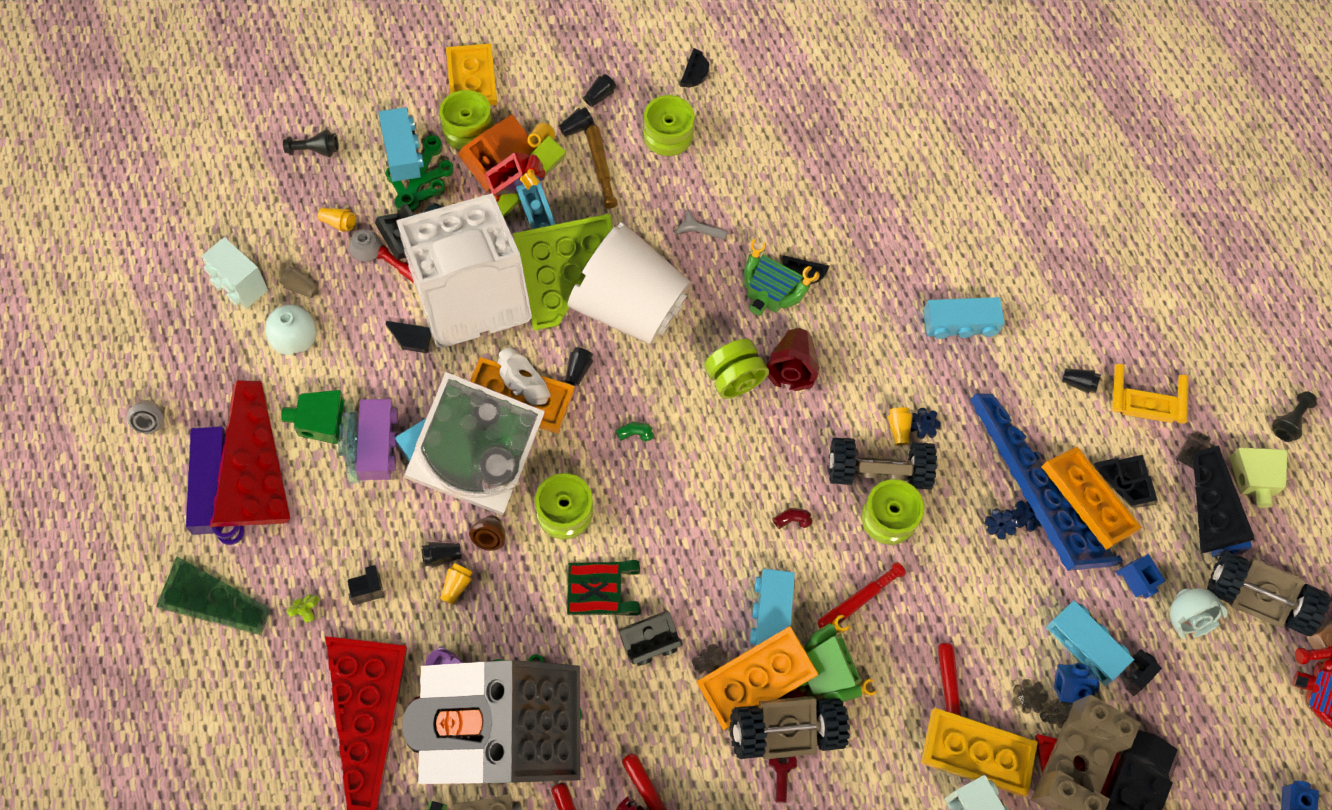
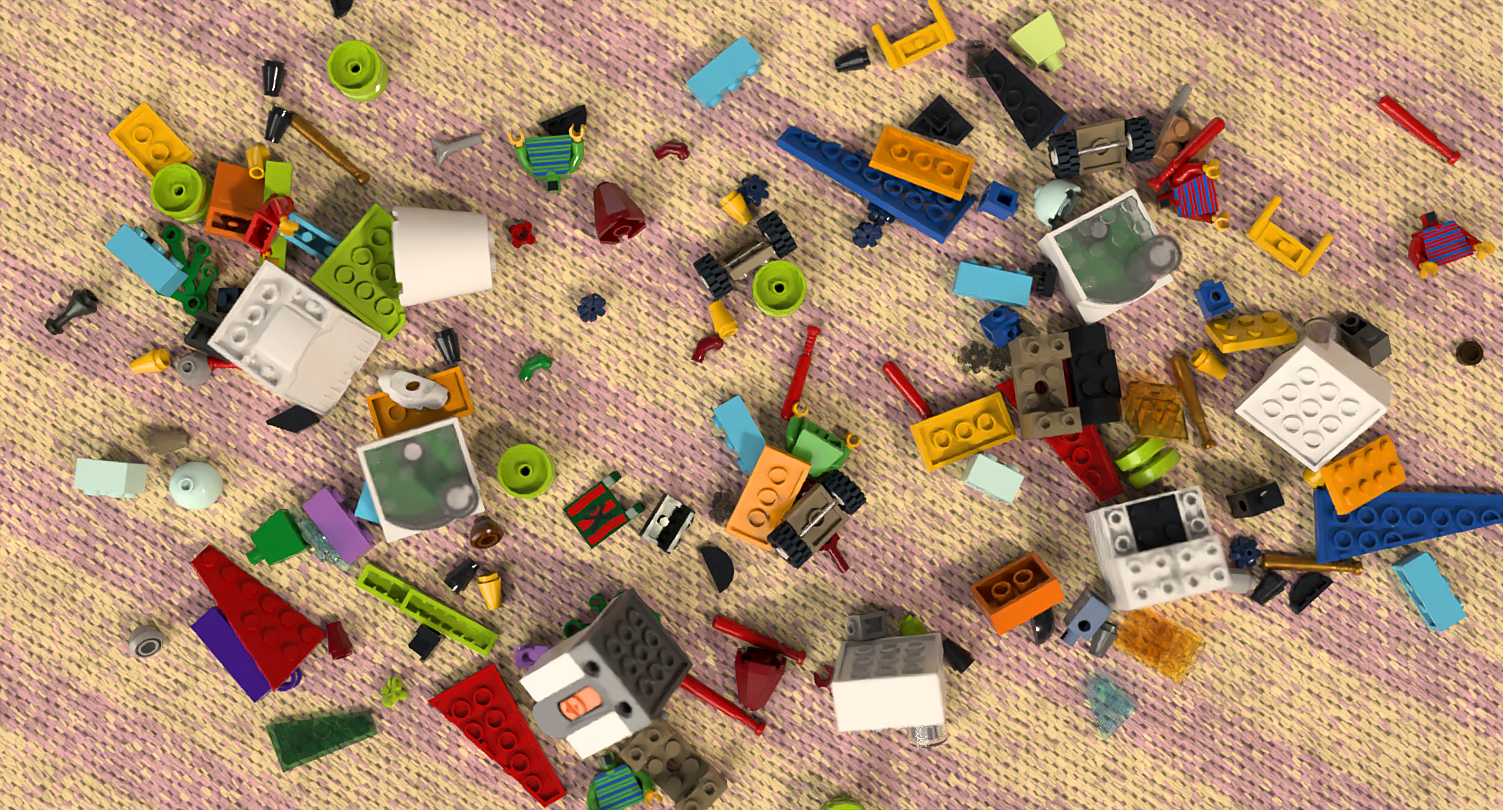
camera: 35 degrees left, 20 degrees up
(294, 533) = (338, 642): none -> dark red cone
(389, 561) = (426, 608): none -> lime slope
(668, 712) = (719, 565): none -> black tile
(704, 319) = (516, 230): none -> red plate
(719, 418) = (591, 307): none -> dark blue plant
(736, 368) = (576, 258): lime wheel -> none
(823, 508) = (723, 321): none -> yellow cone
(883, 348) = (672, 147): none -> dark red arm
(1221, 693) = (1110, 257): none -> clear piece

